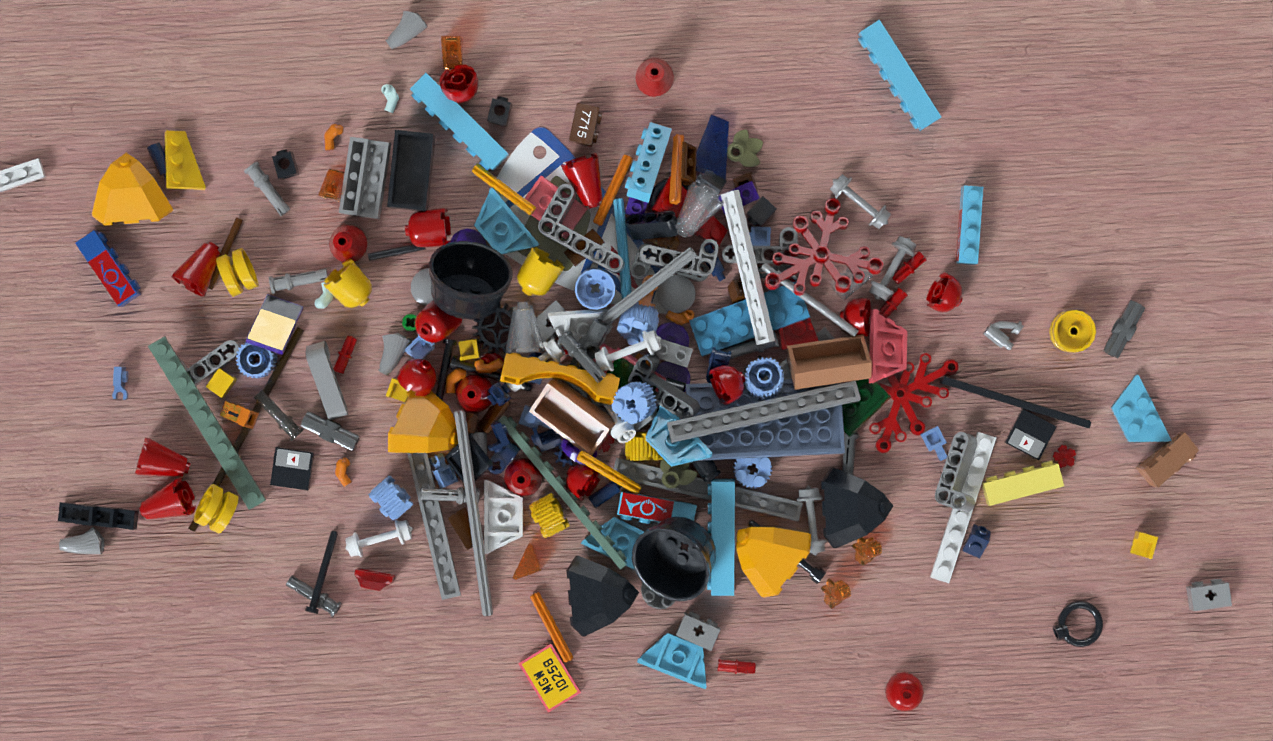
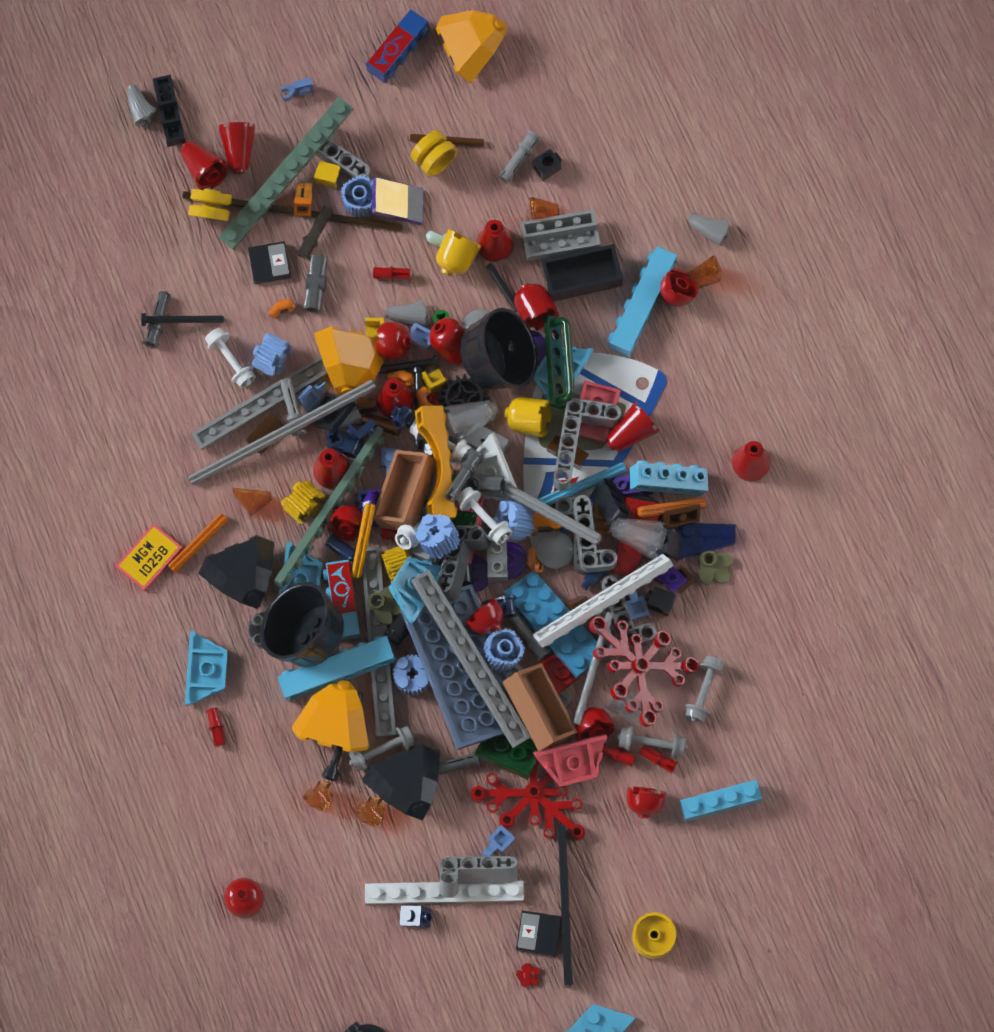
camera: 75 degrees right, 15 degrees down
(158, 157) = (511, 58): dark blue cylinder -> none
(181, 165) = (514, 76): yellow wing -> none
(198, 269) = (423, 119): red cone -> none
(290, 281) = (442, 203): light grey pin -> none
(325, 380) = (361, 262): light grey beam -> none
(330, 134) = (588, 194): orange arm -> none
(373, 579) = (189, 366): red slope -> none
(392, 97) = (644, 236): light aqua arm -> none
(456, 216) = (553, 324): none -> dark green piece
(501, 516) = (287, 462): white wing -> none
(503, 119) = (660, 339): black brick -> none
(503, 189) = (595, 361): light orange axle -> none
(546, 440) = (373, 476): dark blue bracket -> none
(584, 125) = (682, 413): reddish brown brick -> none
(597, 299) = (528, 461): light blue wheel -> none
(612, 190) = (628, 459): orange axle -> none
(687, 631) = (236, 667): light grey brick -> none
(899, 75) = (838, 686): medium azure brick -> none
(998, 337) = (622, 867): light grey plant -> none
(1022, 484) = (487, 941): light yellow brick -> none
(1123, 329) = (674, 988): dark grey piece -> none

